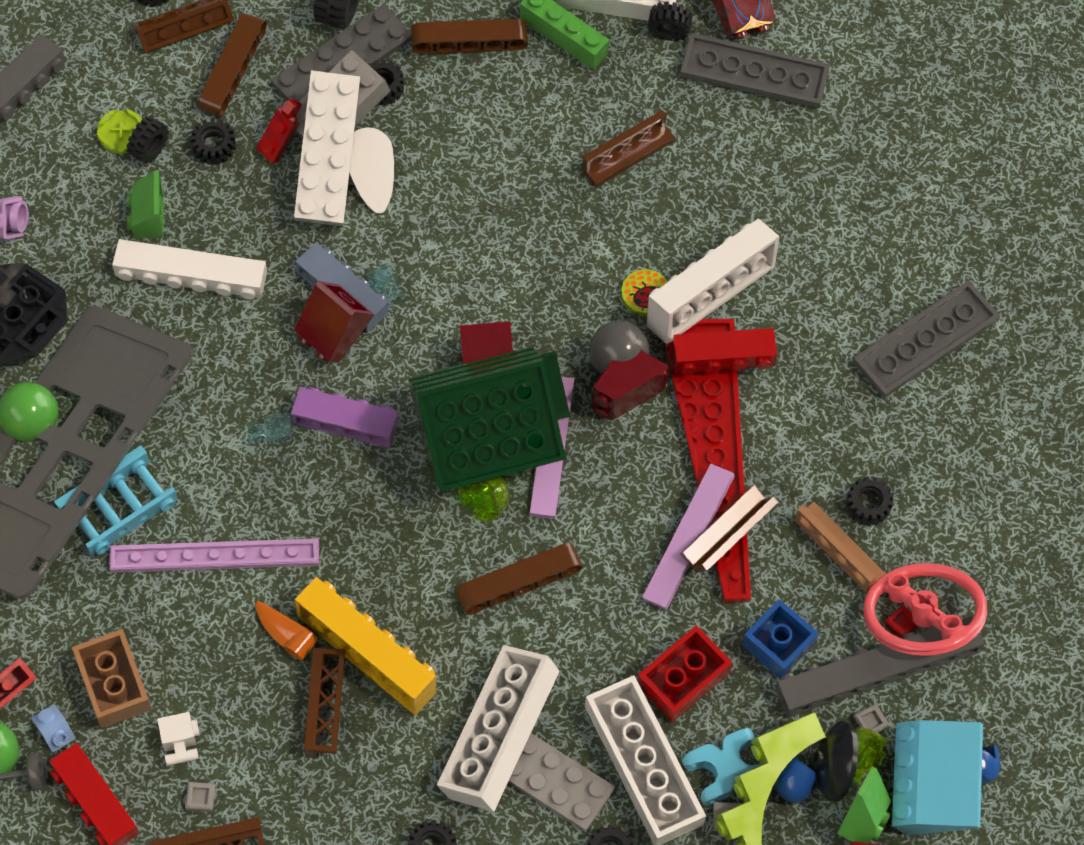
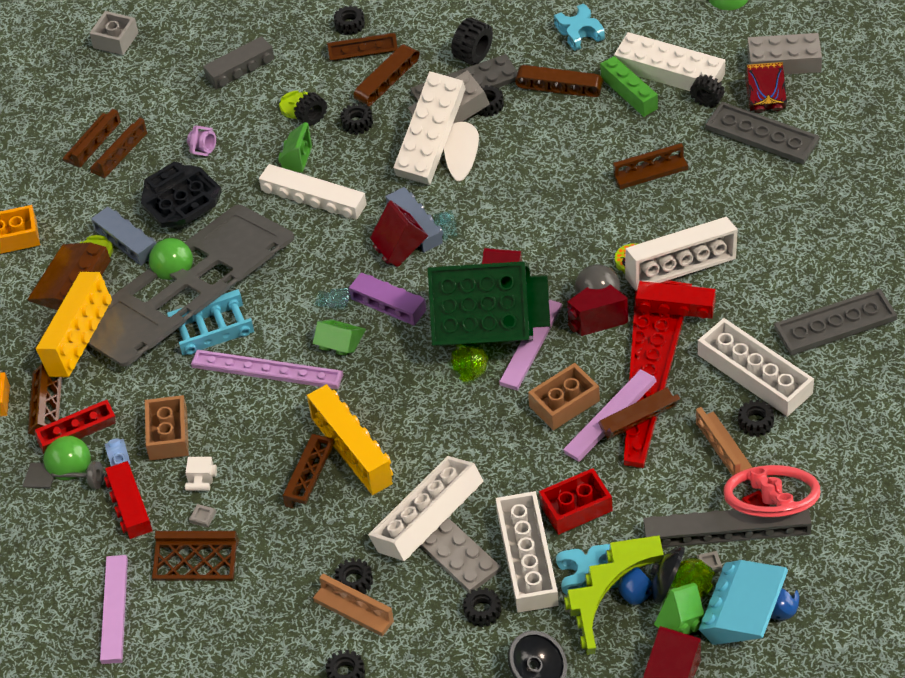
camera: 25 degrees right, 15 degrees down
(279, 131) = (402, 116): red hinge -> none
(288, 633) = (299, 423): orange piece -> none
(297, 487) = (337, 336): none -> bright green slope
(518, 578) = (476, 420): reddish brown beam -> none
(622, 521) = (564, 396): none -> medium nougat brick
(780, 639) = (655, 491): blue brick -> none
(849, 428) = (755, 367): none -> white brick

